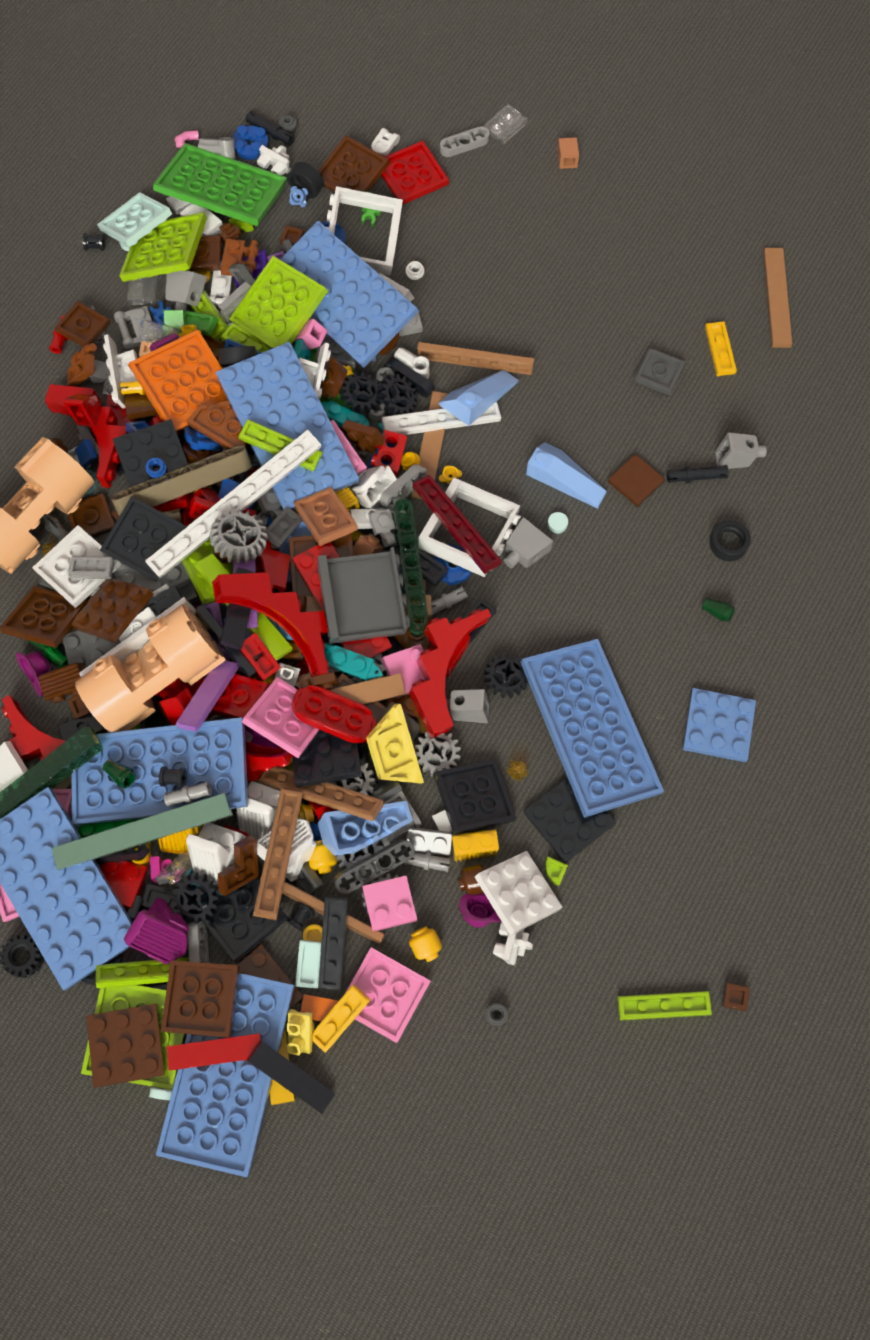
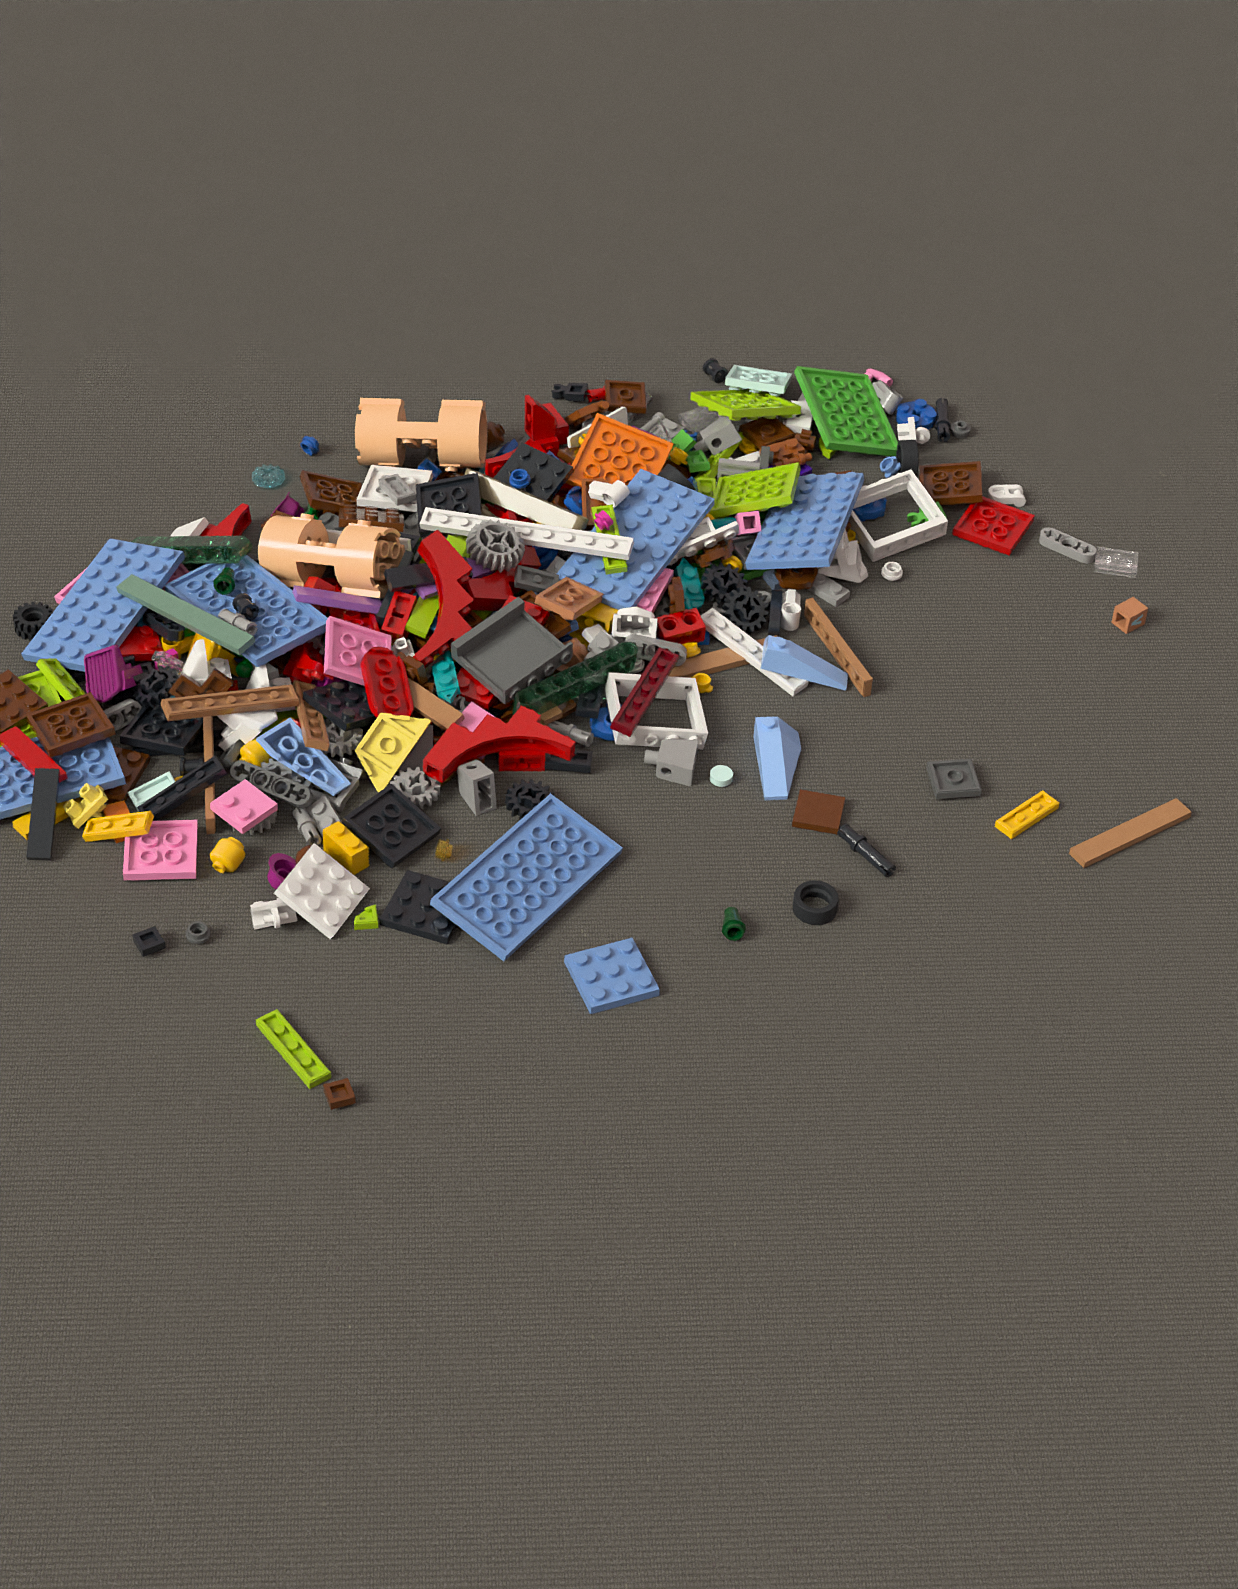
camera: 55 degrees right, 25 degrees down
(40, 357) = (573, 392): none -> black plate
(63, 525) = (428, 465): none -> blue tile
(234, 412) = (609, 493): none -> white piece
(266, 438) = (603, 520): none -> dark pink plate
(485, 1060) = (148, 941): none -> black plate
(738, 450) = (917, 863): light grey torso -> none

